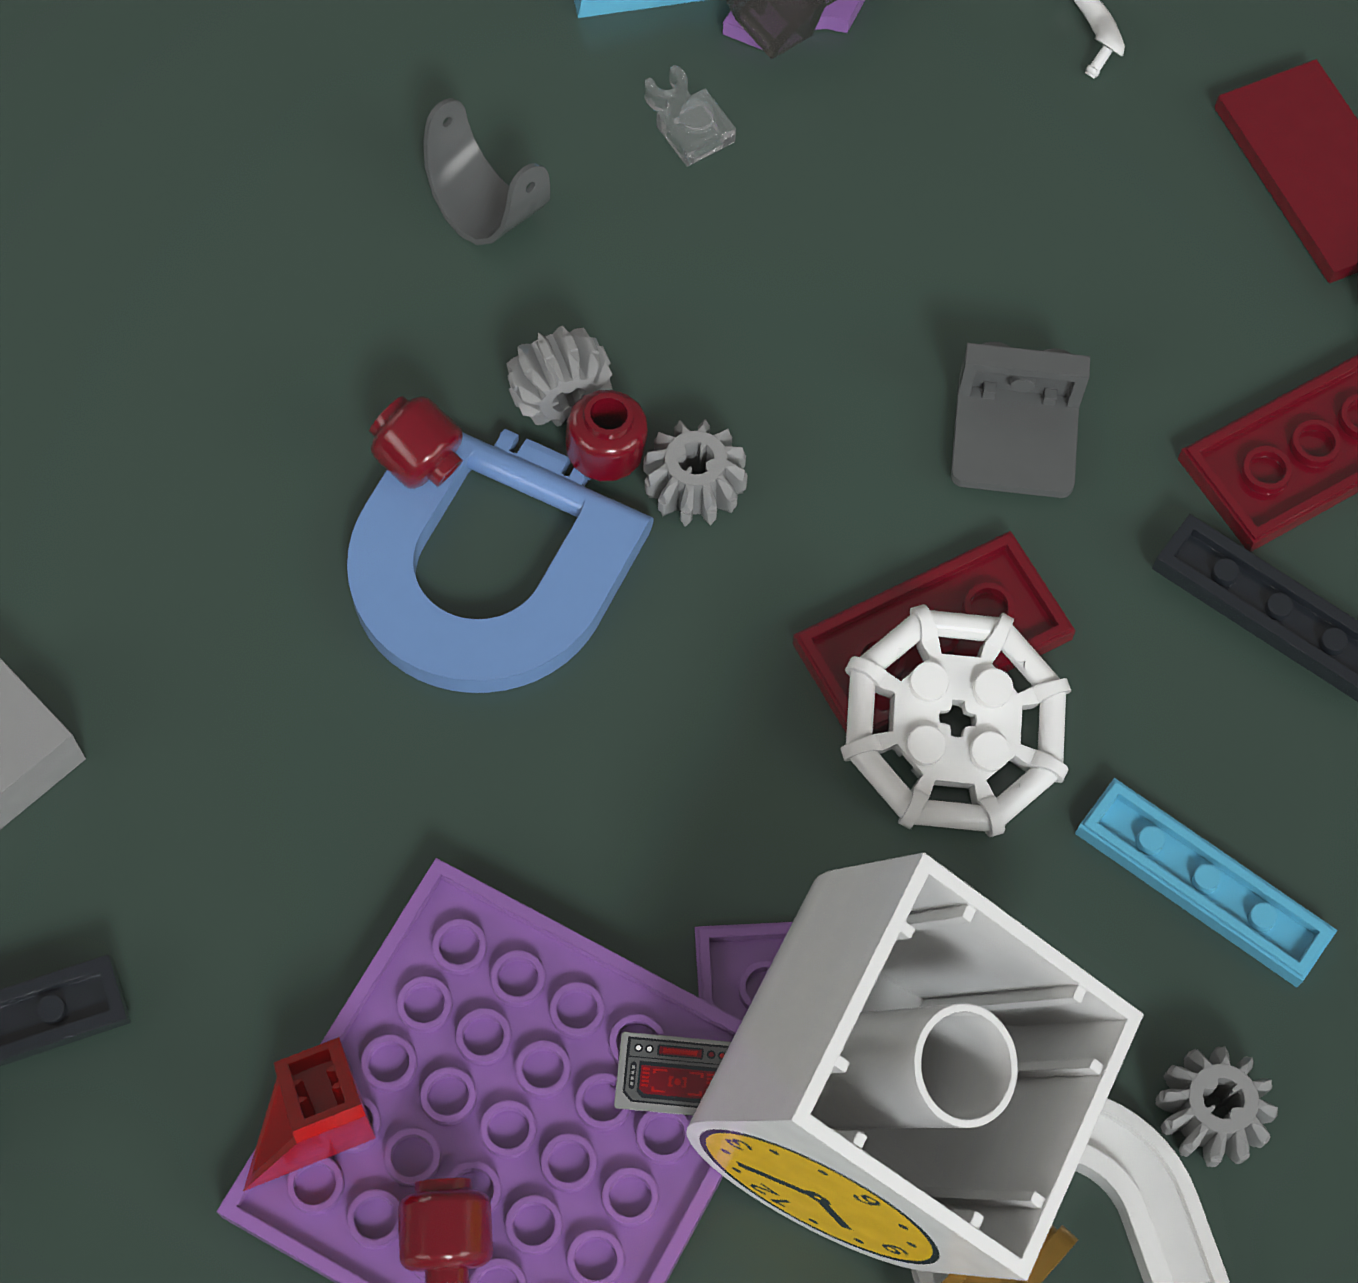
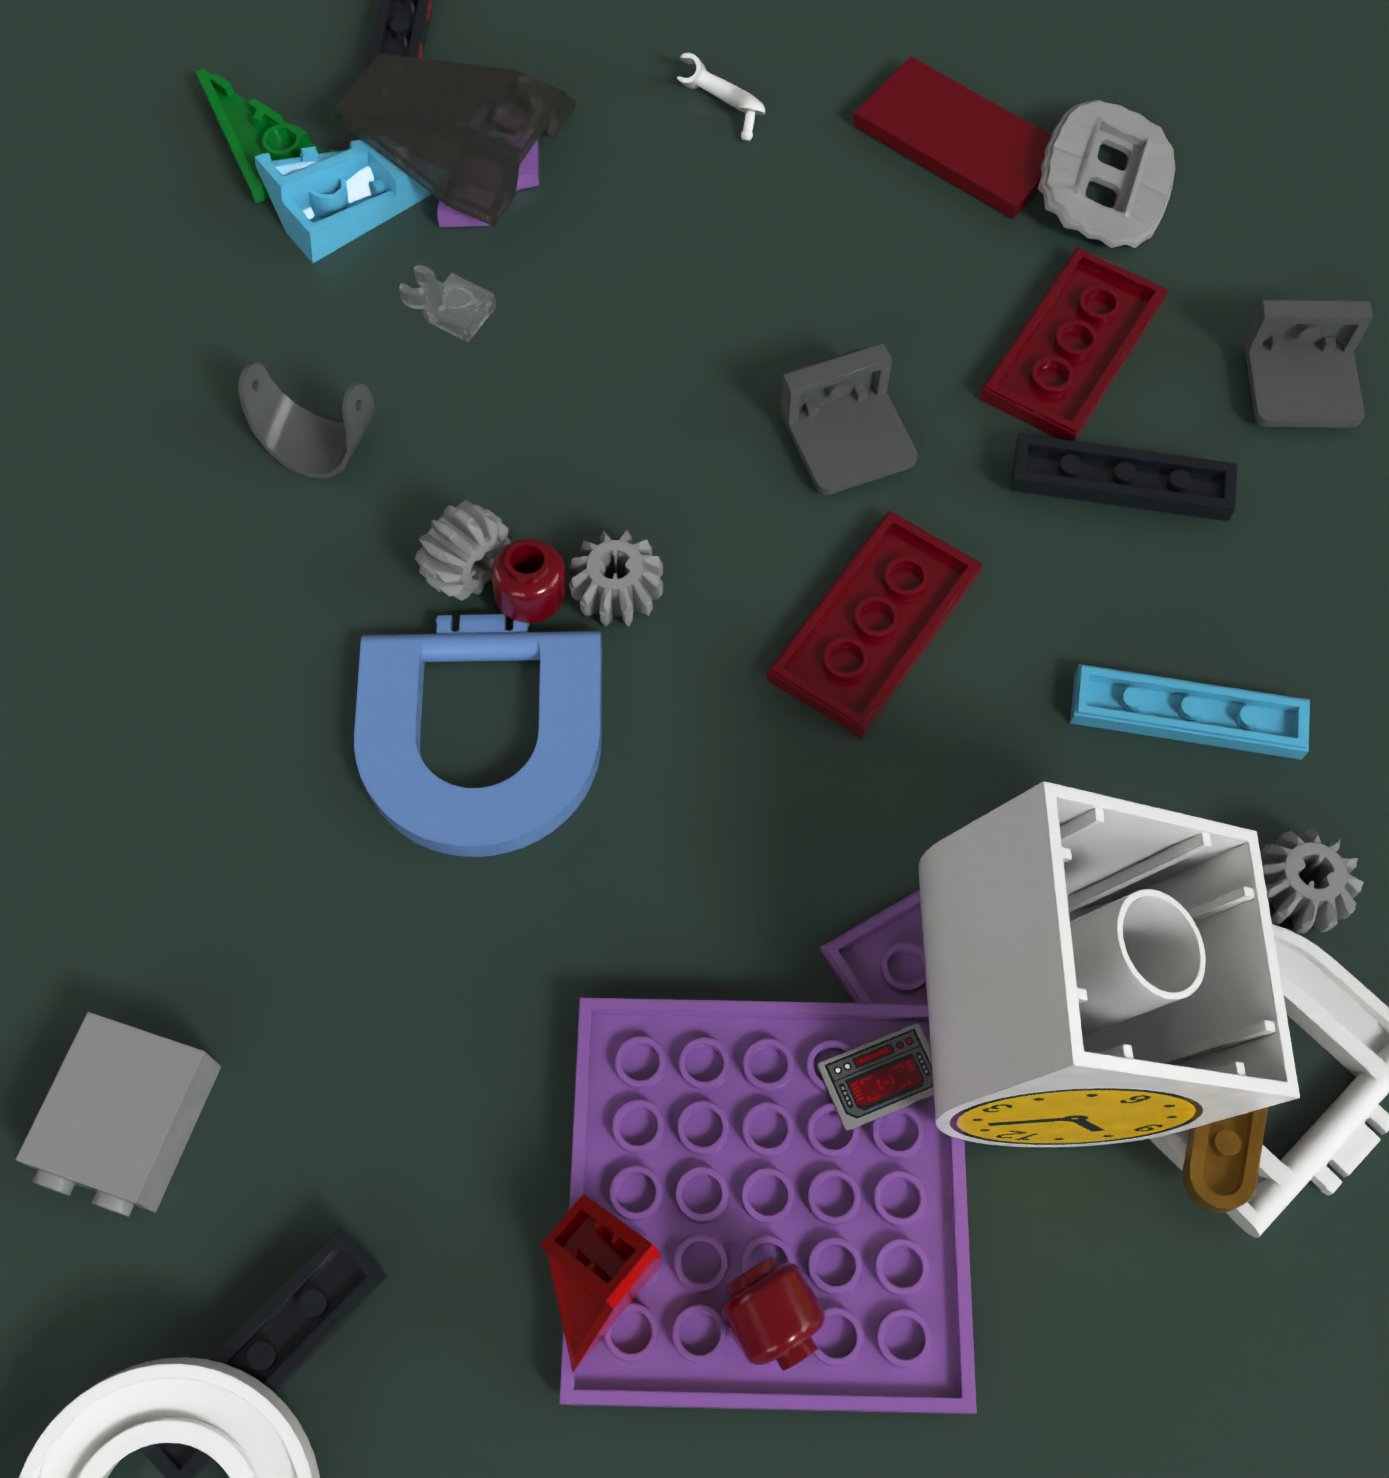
camera: 25 degrees left, 0 degrees up
(416, 442) = (374, 657): dark red head -> none
(927, 744) = (955, 652): white plate -> none

